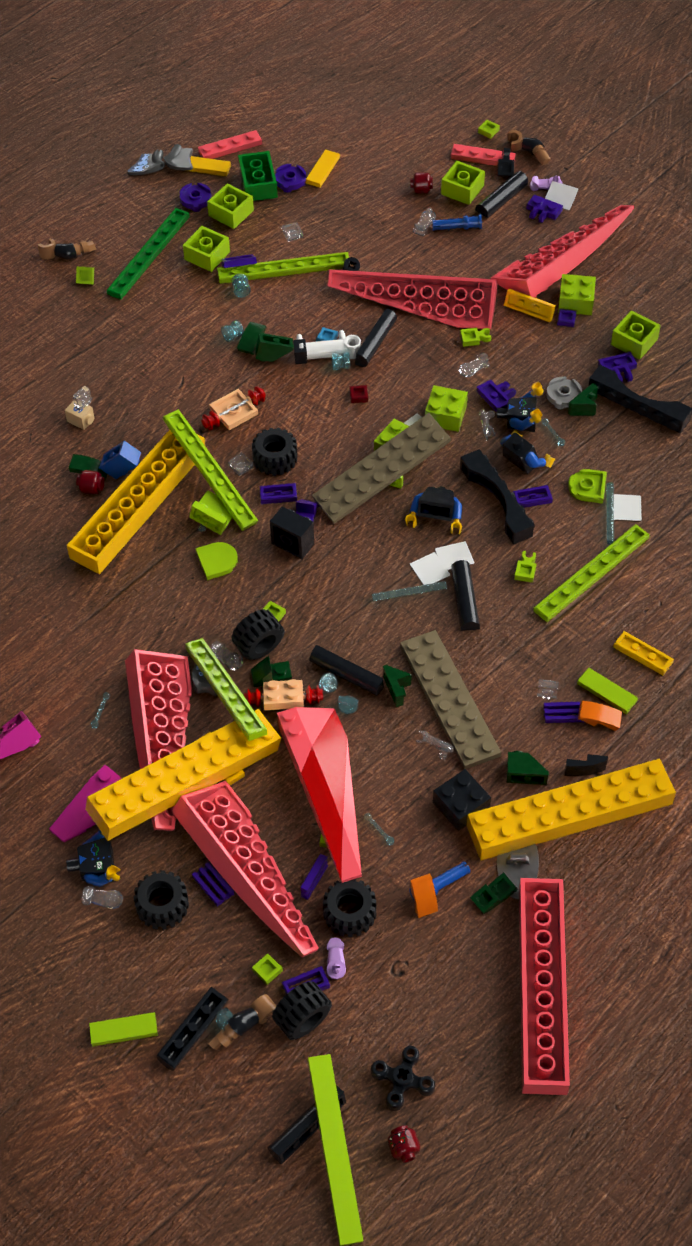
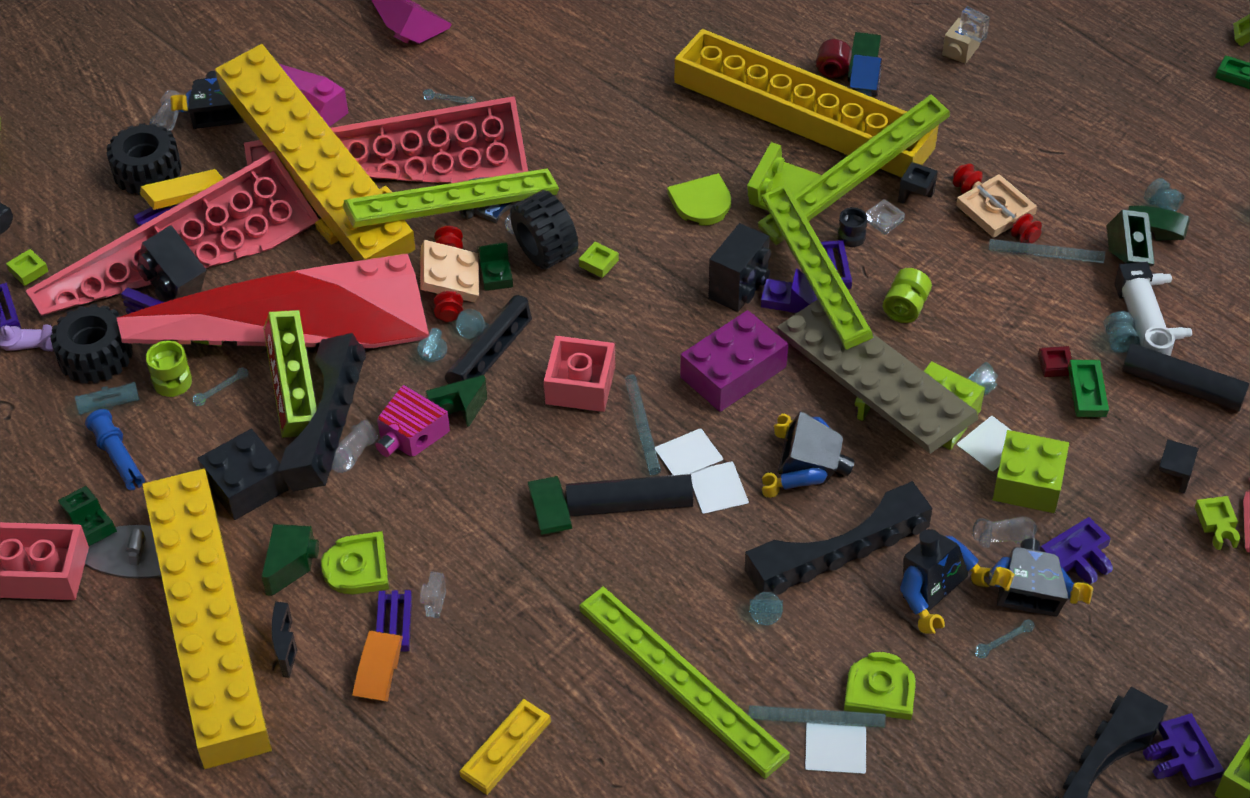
camera: 90 degrees right, 5 degrees down
(194, 868) = (178, 189): none -> yellow tile
(216, 442) = (918, 180): none -> black panel
(250, 479) = (852, 226): none -> black wheel
(270, 390) = (1046, 251): none -> clear light blue bar
(270, 441) = (907, 243): black tyre -> none
(288, 855) = (170, 266): none -> black brick
(294, 491) = (817, 267): none -> lime tile
(312, 454) = (907, 295): none -> lime wheel
(327, 334) = (1181, 316): dark azure tile -> none
(364, 540) = (733, 360): none -> magenta brick
(370, 750) = (311, 455): none -> black arch
(373, 854) = (169, 368): none -> lime wheel
(377, 424) = (985, 377): none -> clear light blue plate
(378, 617) = (579, 373): none -> coral brick
(383, 379) = (1088, 388): none -> green plate
(386, 771) = (289, 371): none -> lime brick
(393, 895) = (127, 393): none -> clear light blue pin
(415, 710) = (410, 423): none -> dark pink torso
(424, 895) = (85, 418): orange slope -> none
(439, 344) = (1178, 461): none -> black panel
(450, 700) = (434, 472): dark tan plate -> none
(474, 366) = (1139, 514): clear piece -> none
(479, 633) = (549, 505): none -> dark green slope
(522, 734) = (356, 564): none -> lime tile
(526, 568) = (682, 577): lime plate -> none
(533, 499) = (853, 620): dark purple tile -> none
(544, 532) = (766, 608): none -> clear light blue plate
(562, 384) = (1098, 672): light grey plate -> none
(584, 403) = (1077, 680): dark green slope -> none
(607, 690) = (430, 685): lime tile -> none

